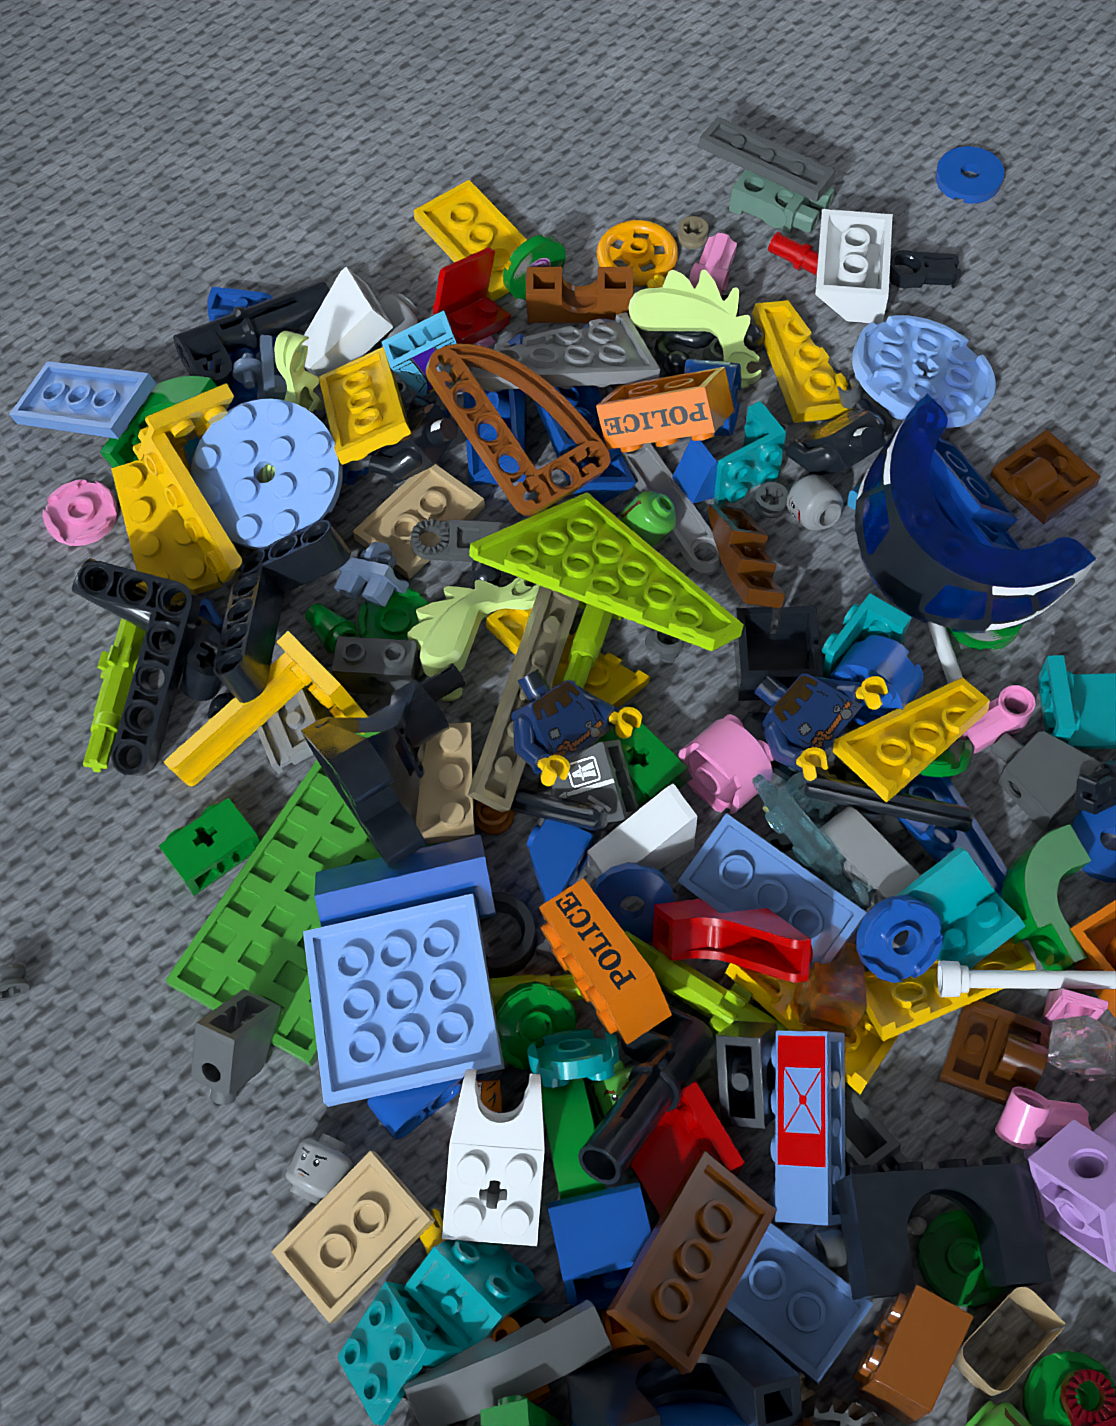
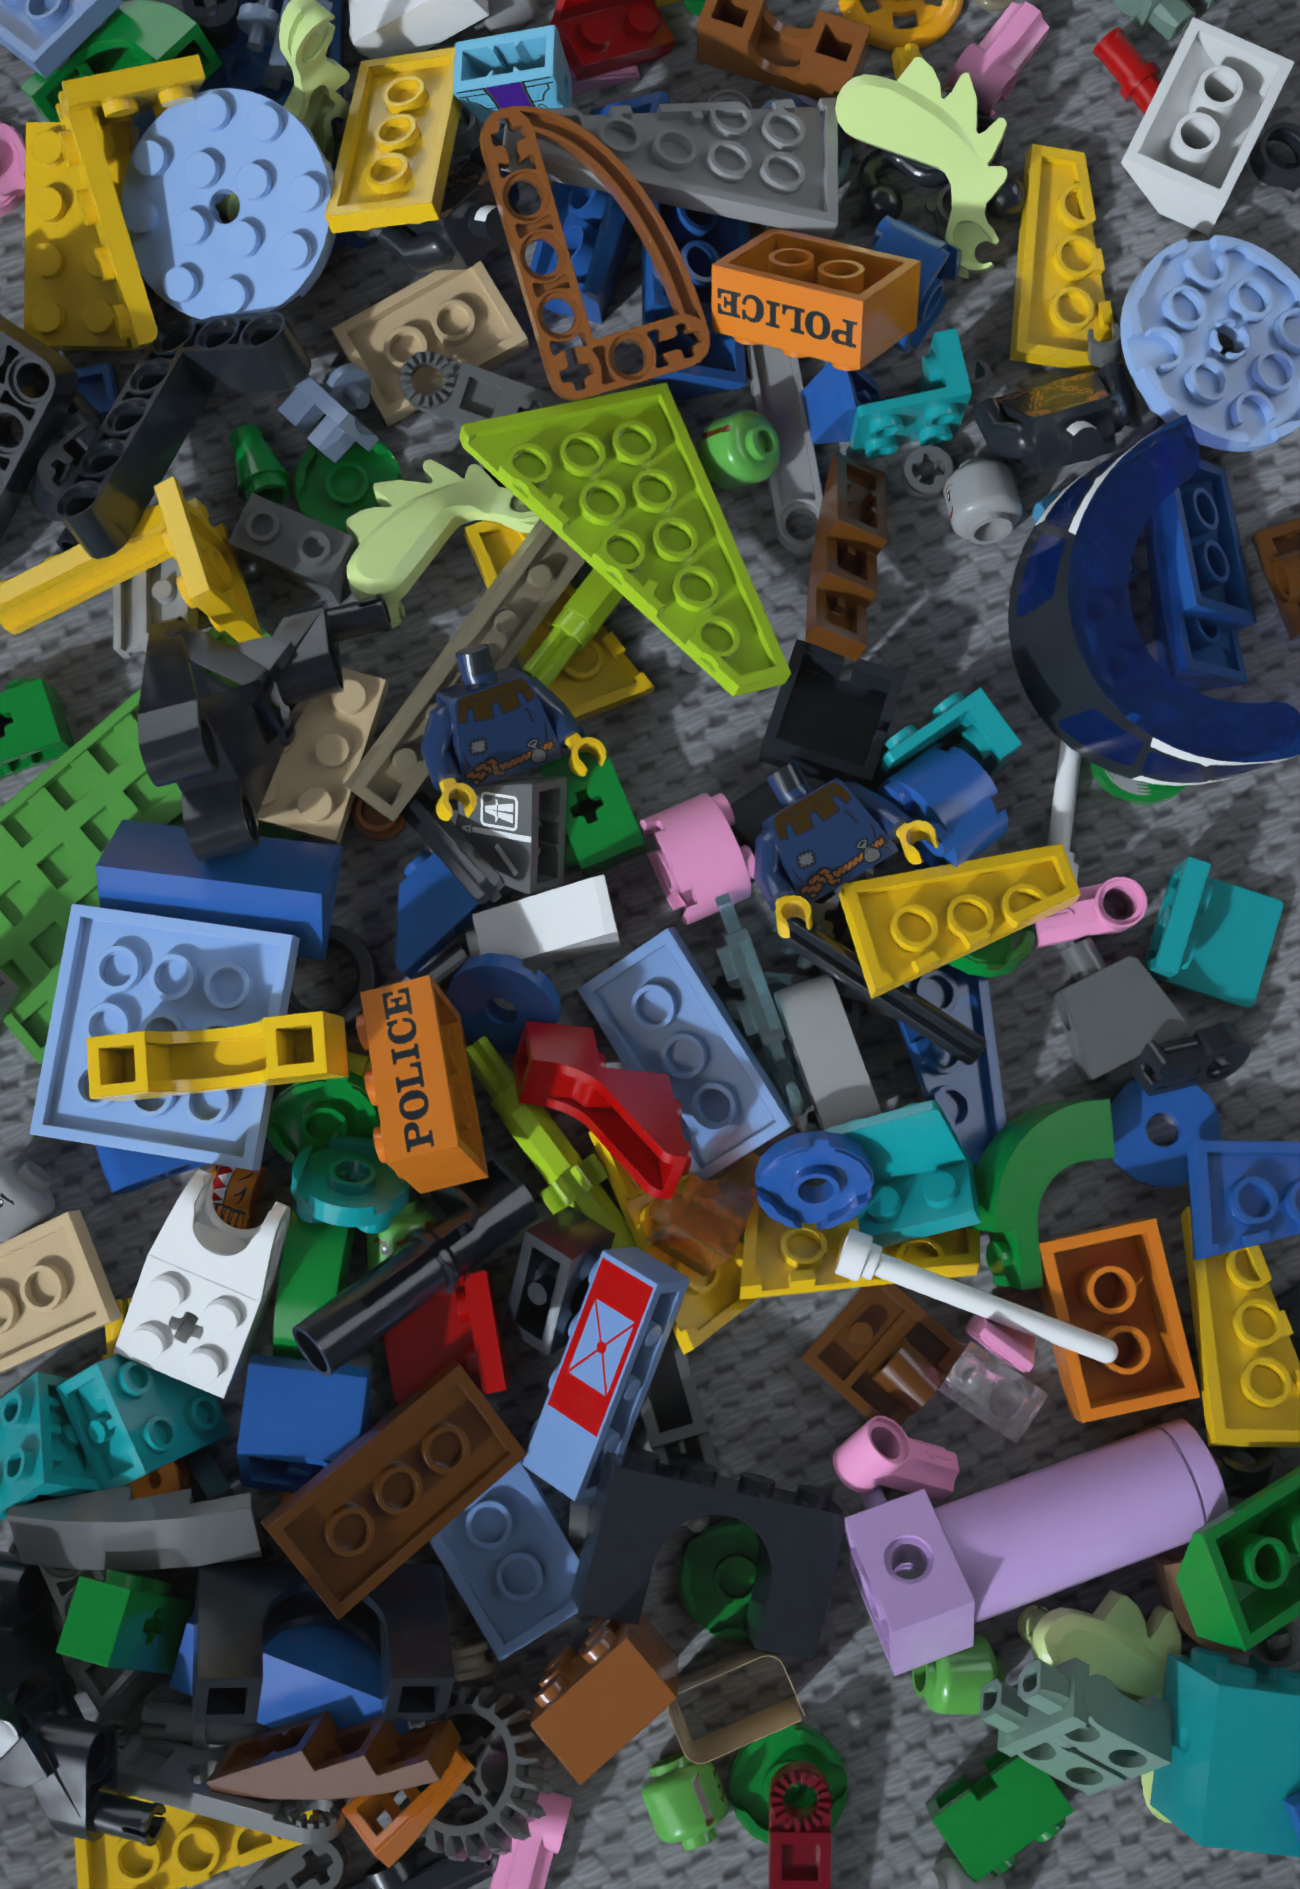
camera: 25 degrees right, 20 degrees up
(419, 1003) = (219, 1059): none -> yellow arch

